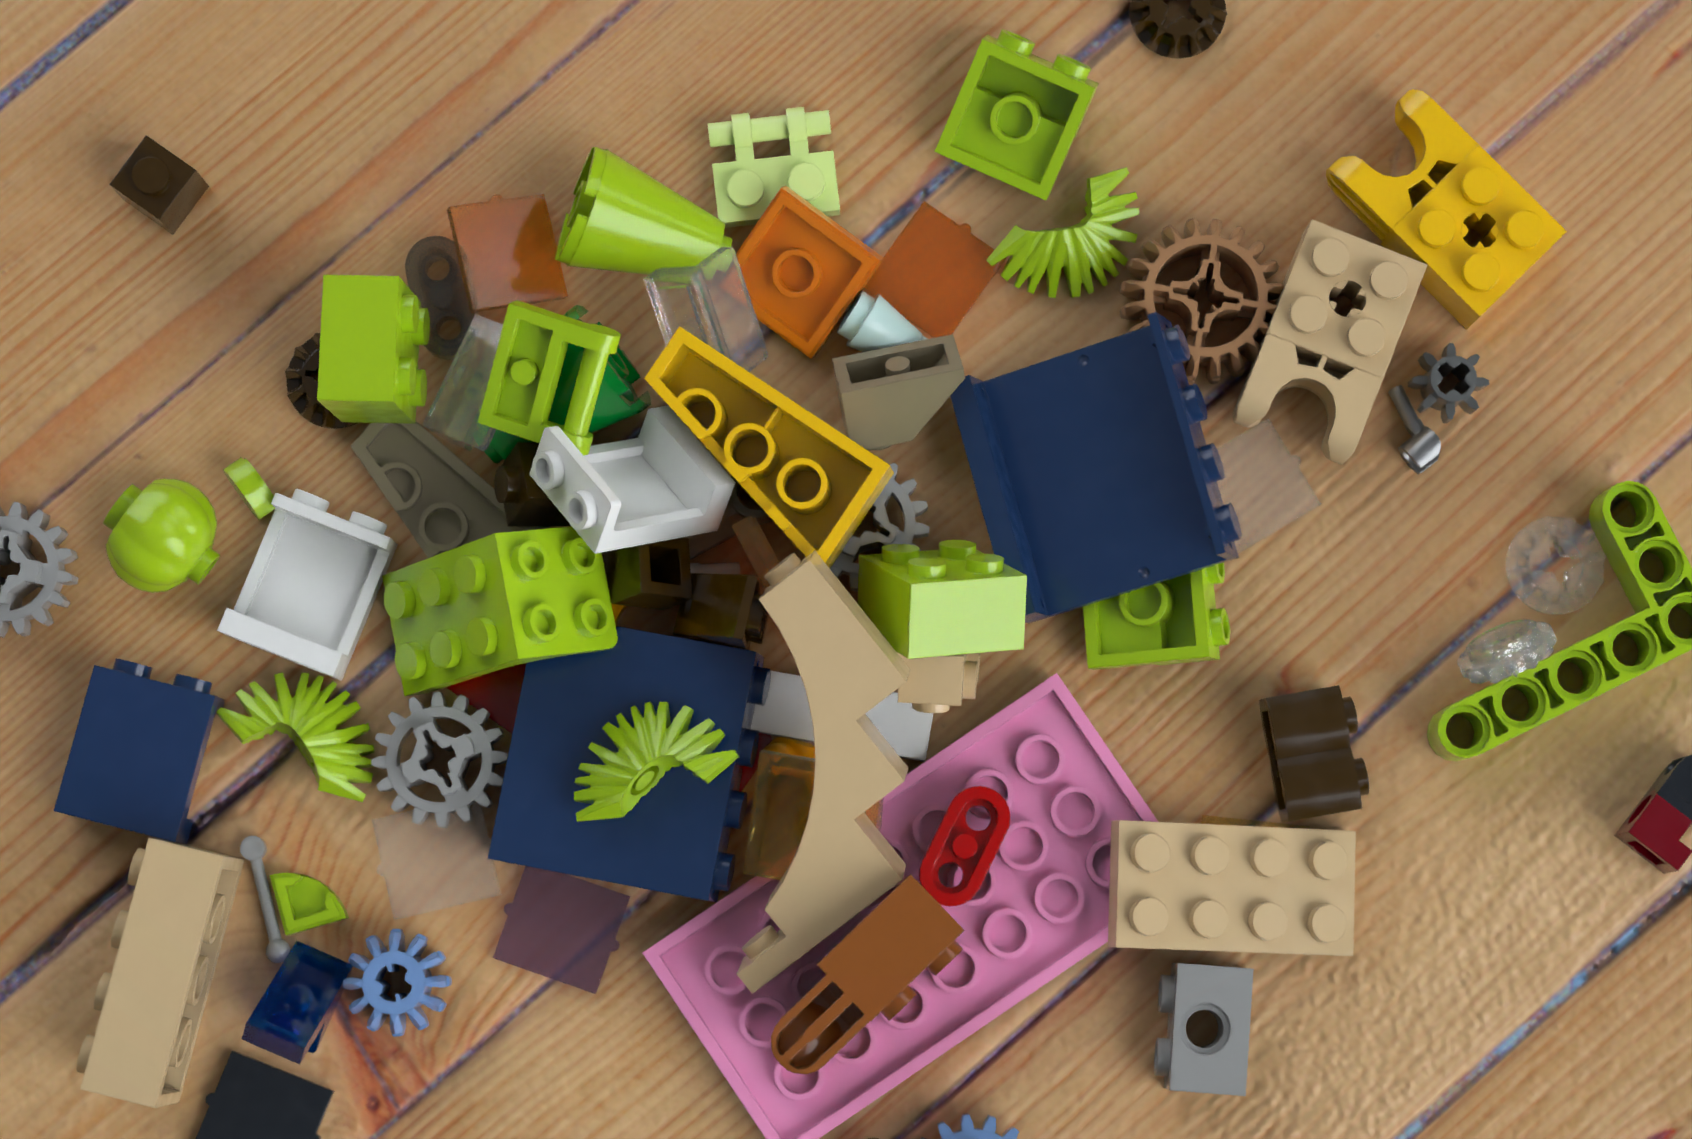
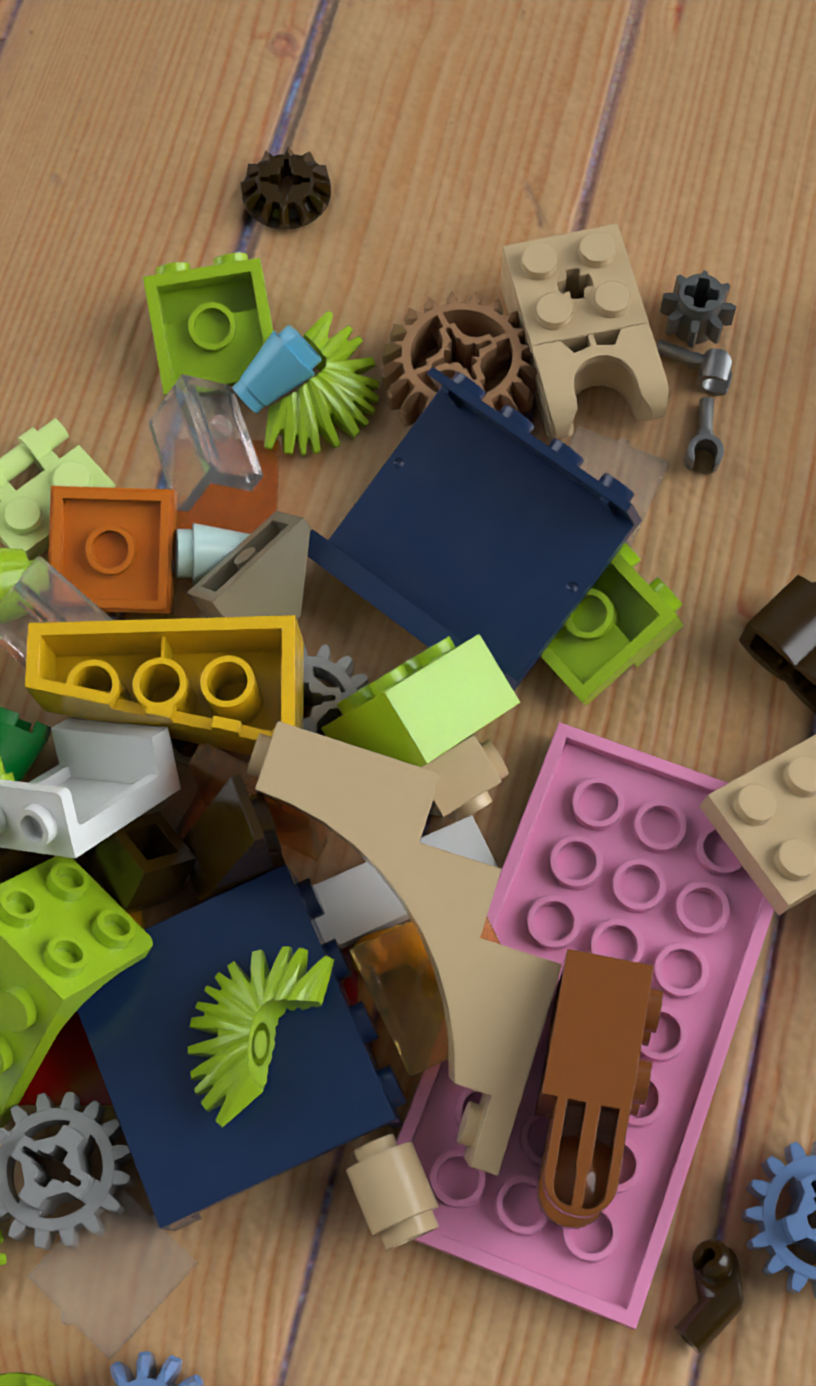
camera: 30 degrees left, 15 degrees down
(562, 928) = (274, 1253): piece -> none
(672, 950) = (393, 1191): none -> tan brick
(938, 221) = (203, 440): none -> clear panel
(964, 846) = (592, 915): red plate -> none
(1042, 201) = (277, 369): none -> medium azure cone
(1371, 499) = (705, 436): none -> flat silver hand
(1435, 204) = (598, 179): yellow brick -> none

